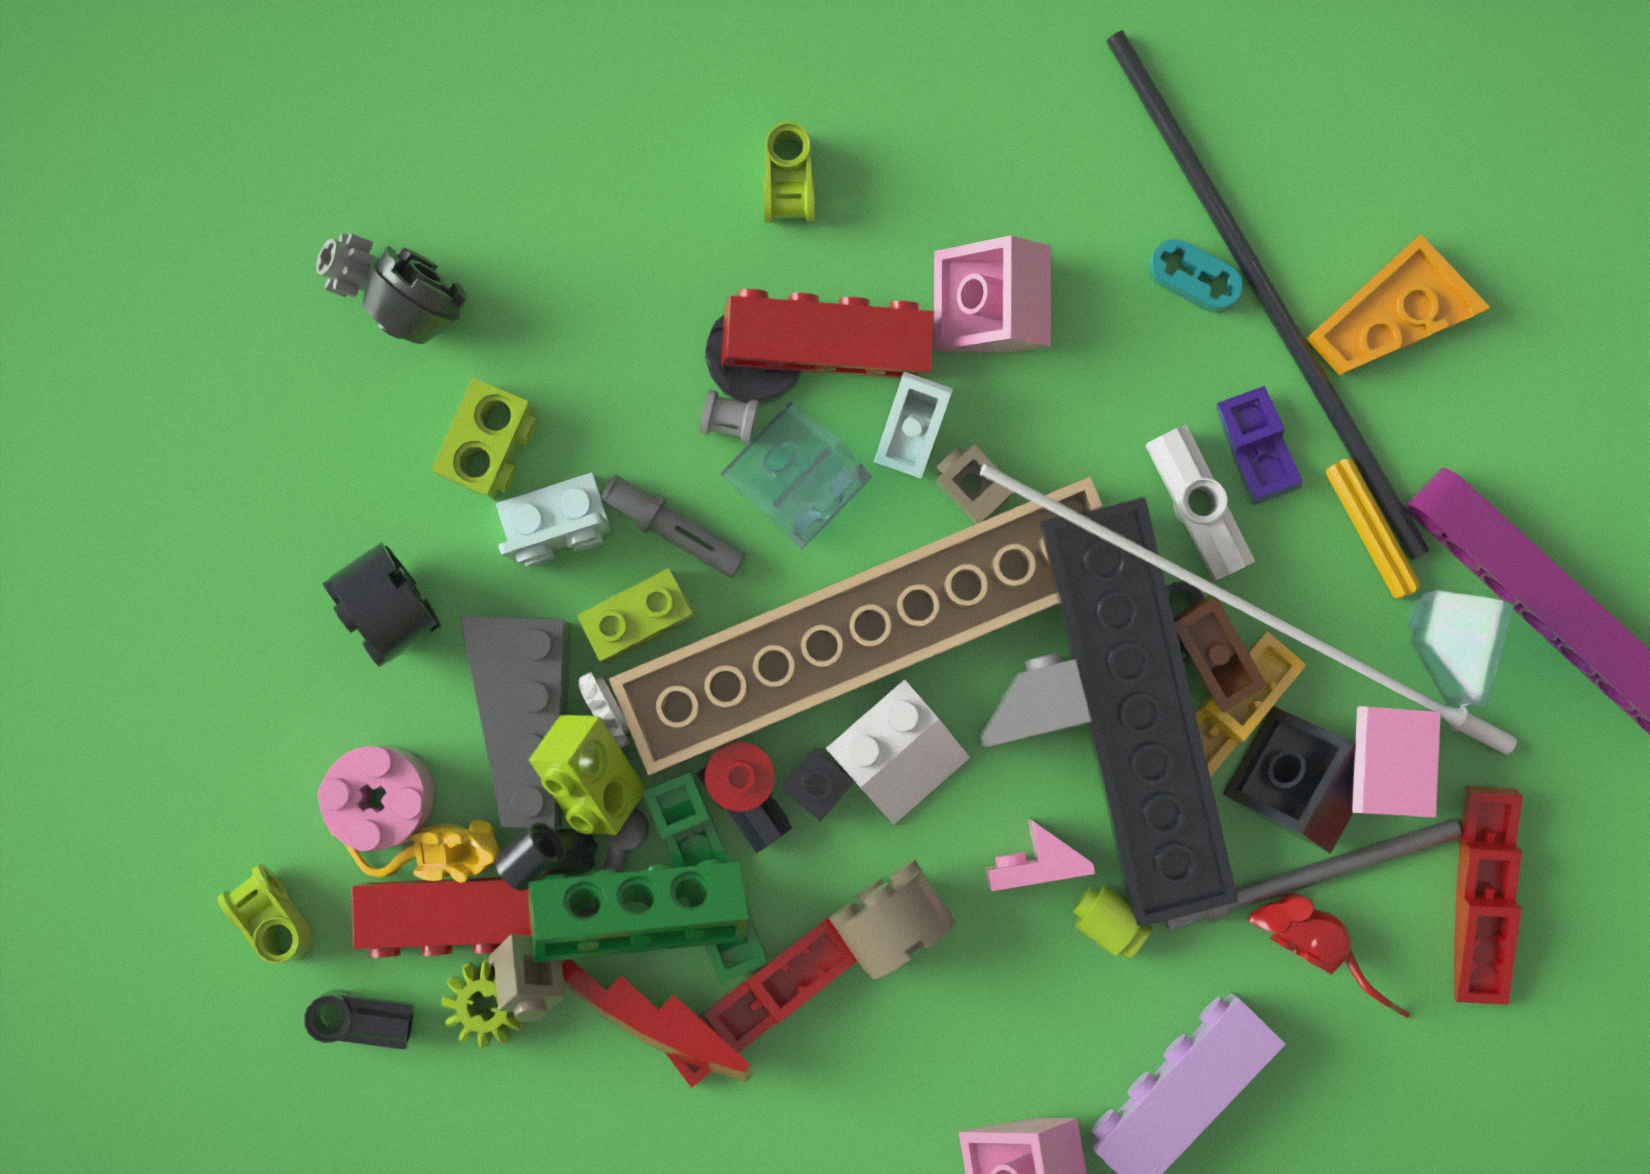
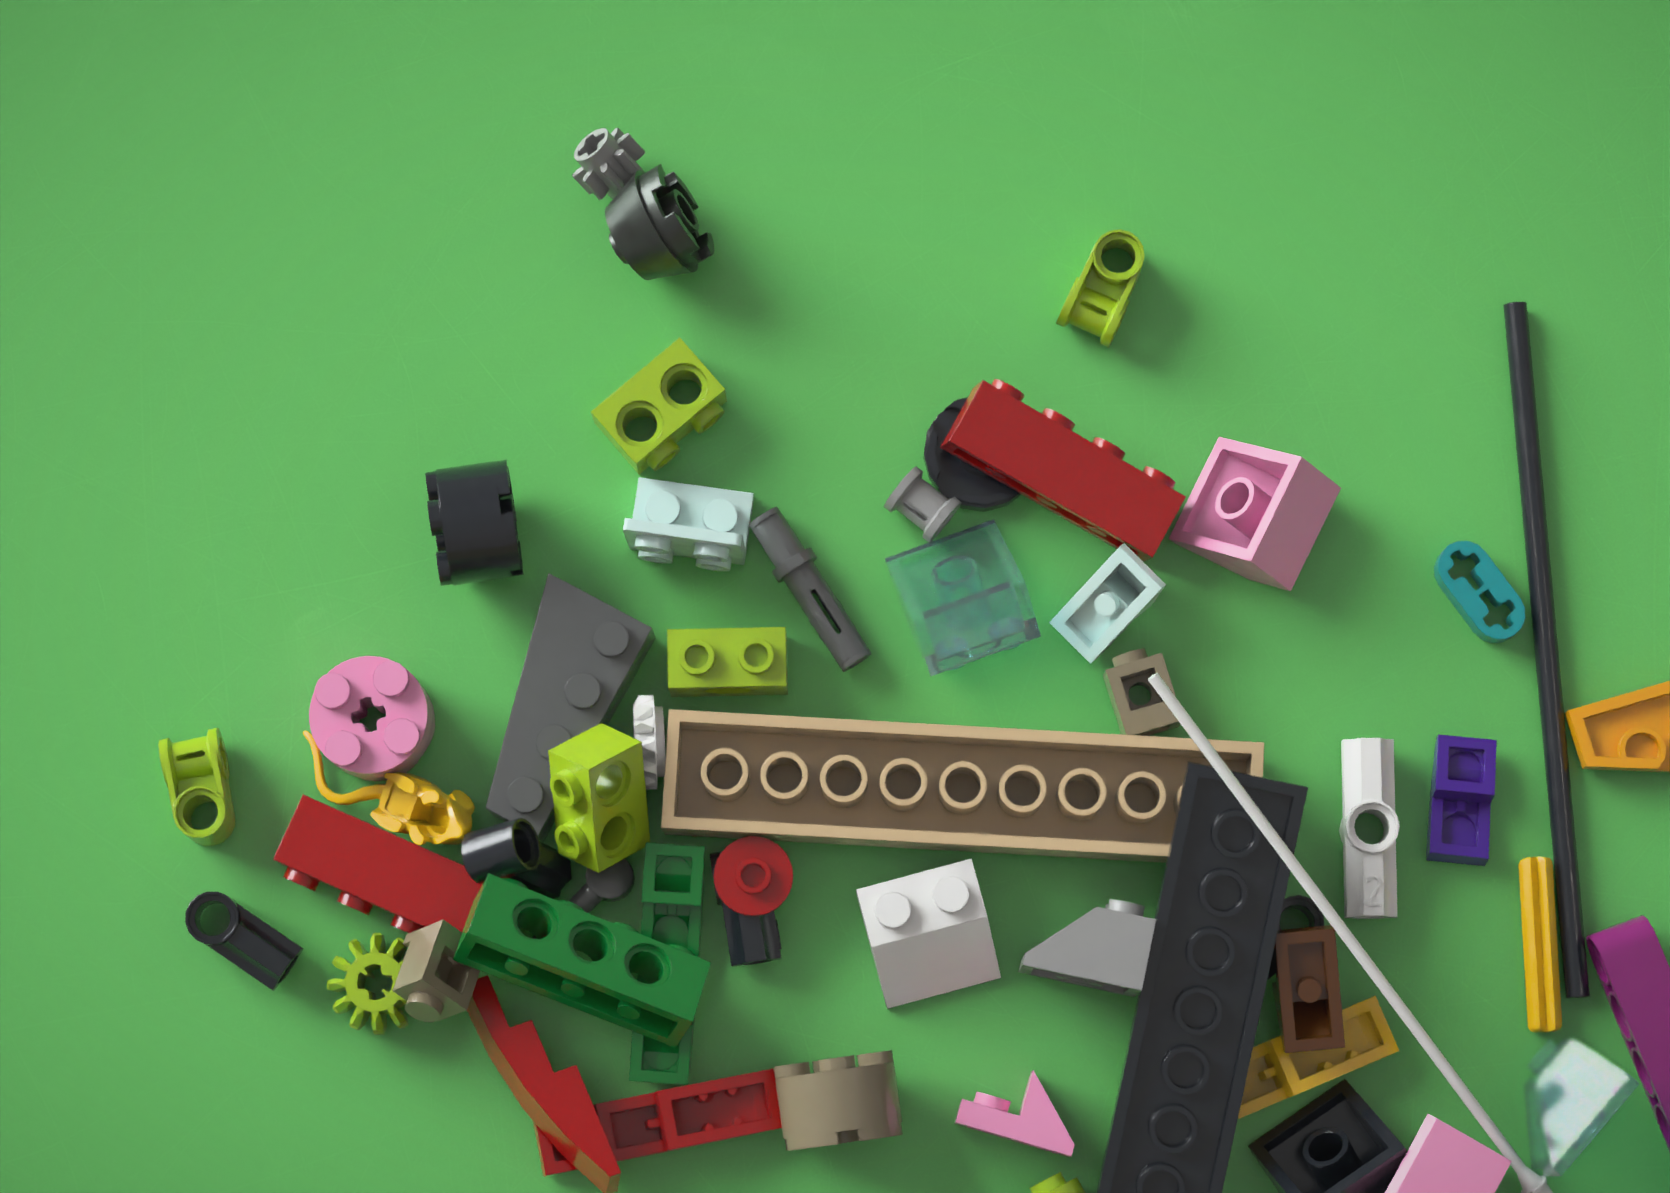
camera: 25 degrees right, 5 degrees down
(817, 784) = (829, 924): black brick -> none

